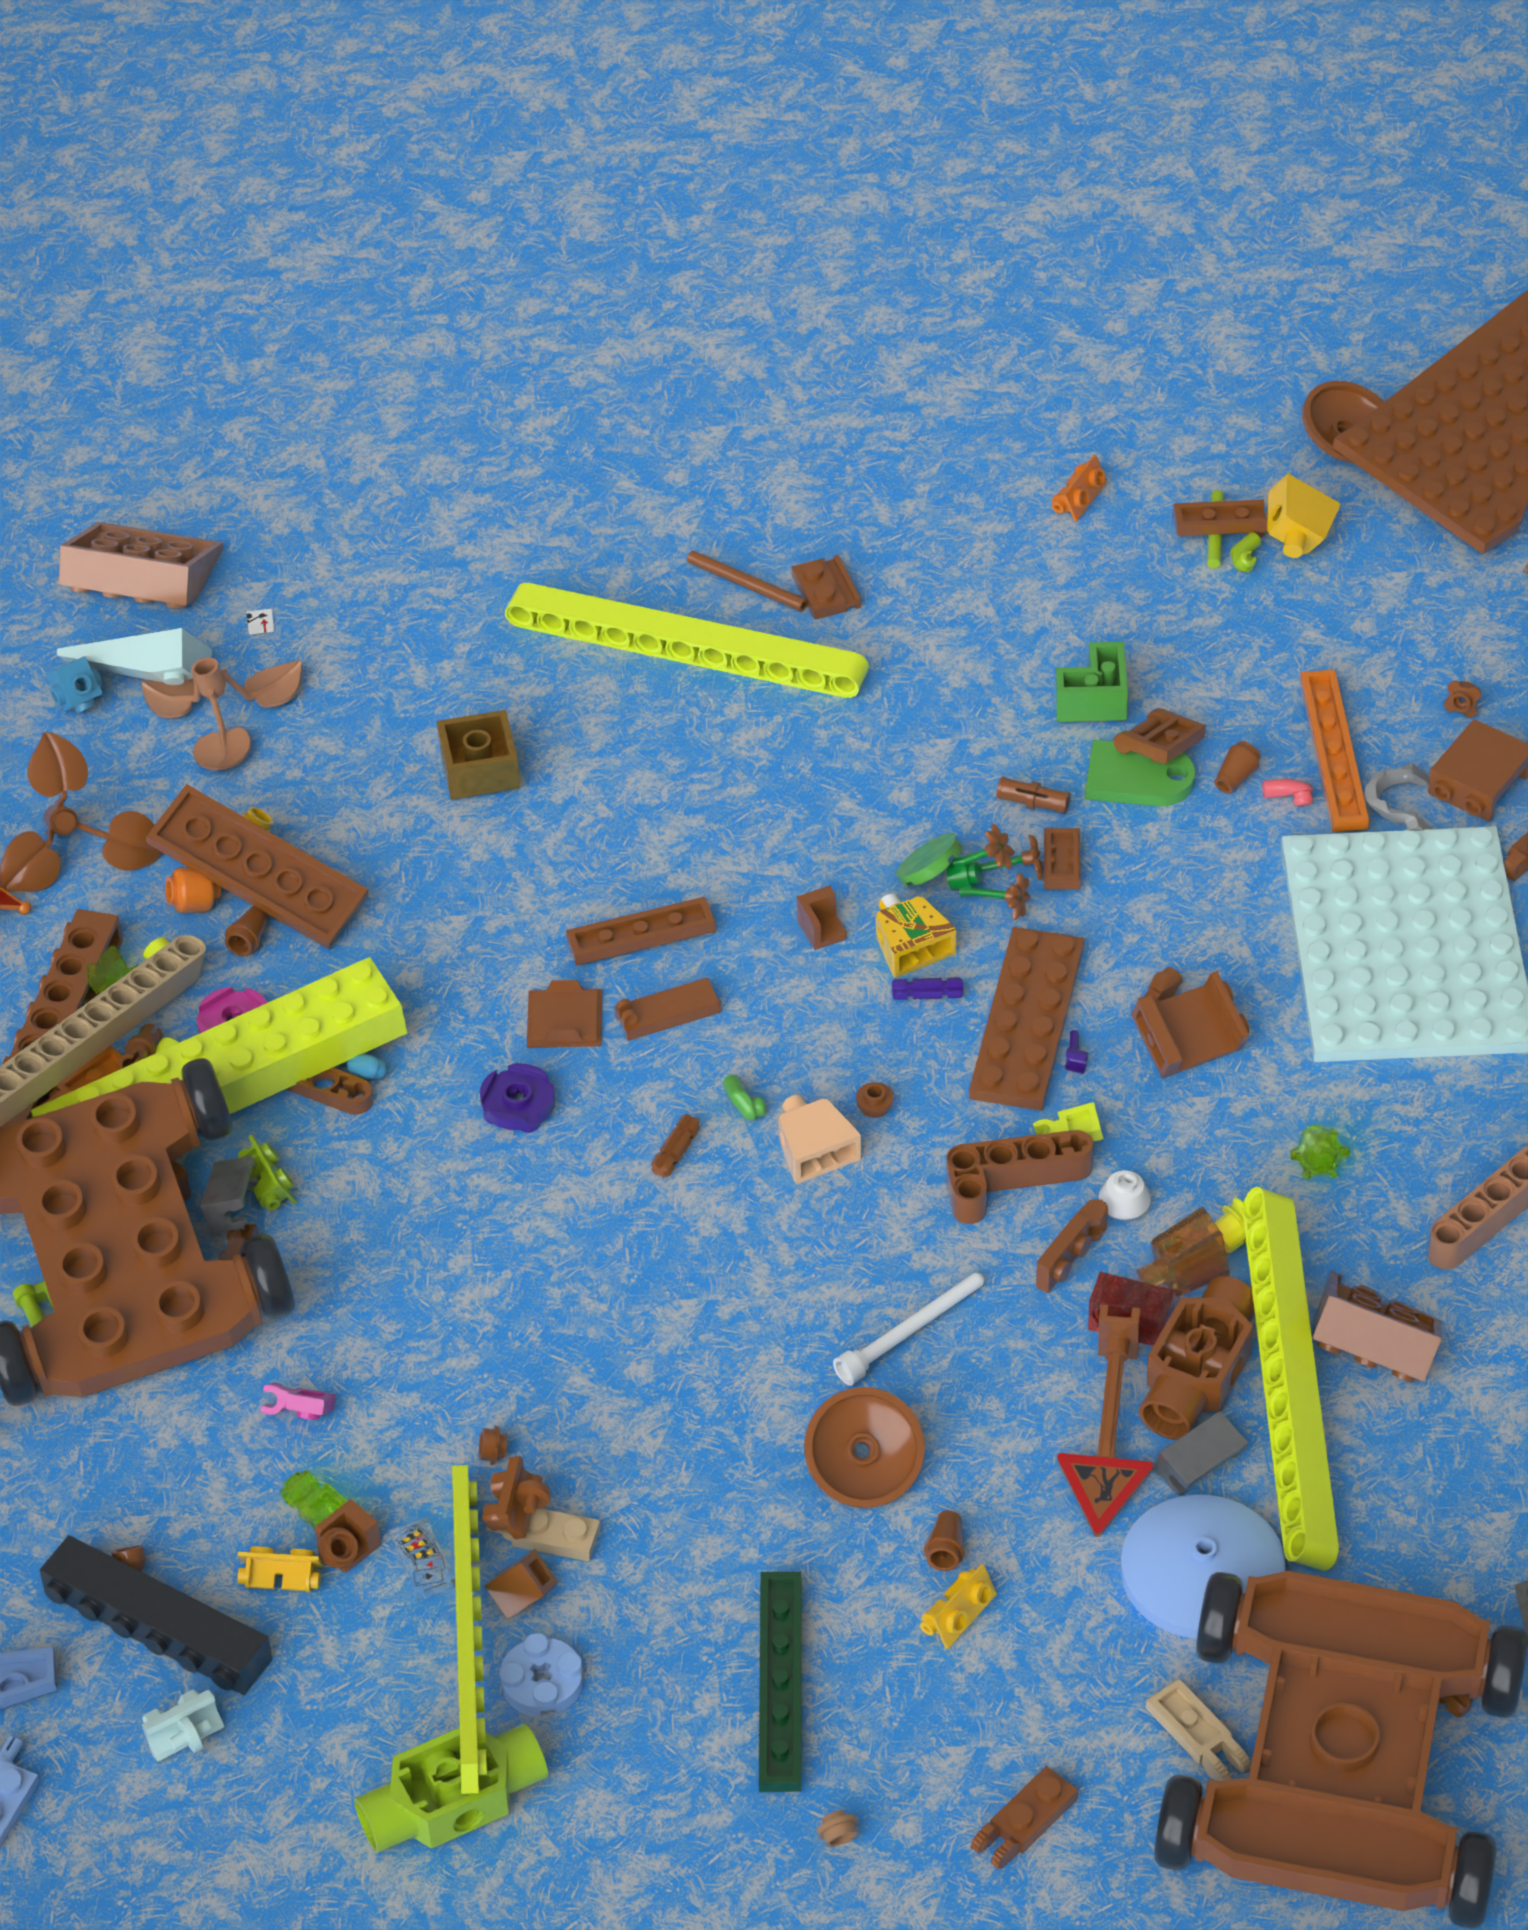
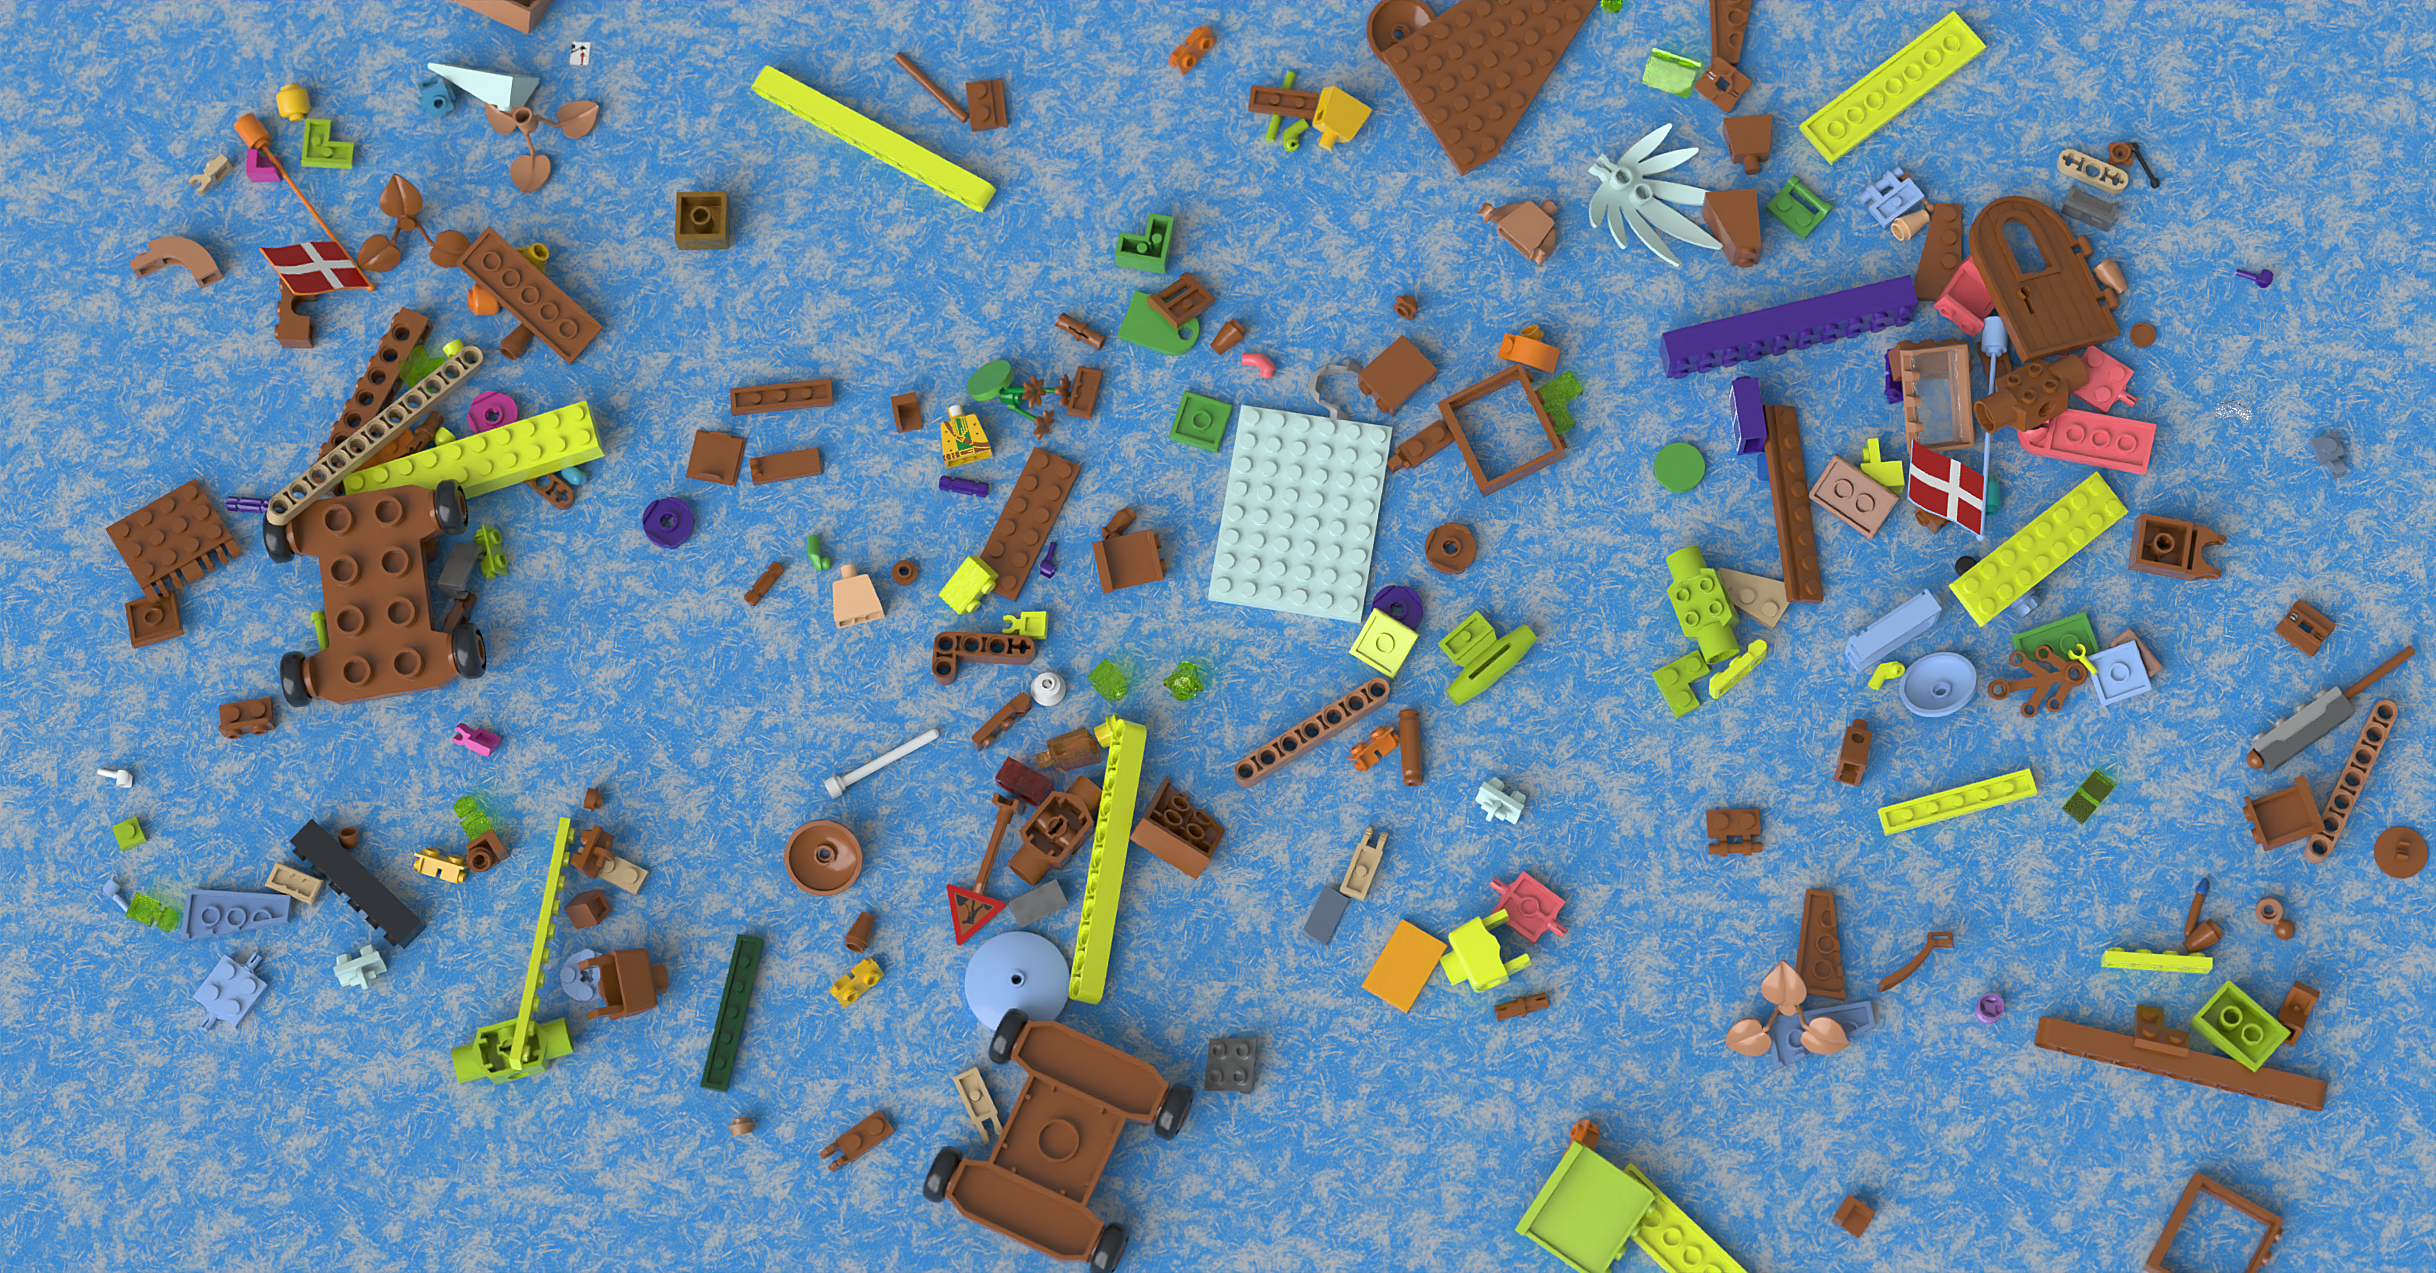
camera: 15 degrees right, 25 degrees up
(68, 1634) = (294, 883): none -> tan plate
(422, 1558) = (531, 873): clear tile -> none
(607, 1655) = (627, 982): none -> dark orange piece
(975, 1088) = (969, 585): none -> neon yellow brick
(1210, 1170) = (1108, 681): none -> clear neon green brick
(1232, 866) = (1201, 422): none -> bright green tile
(1334, 751) = (1300, 334): orange plate -> none

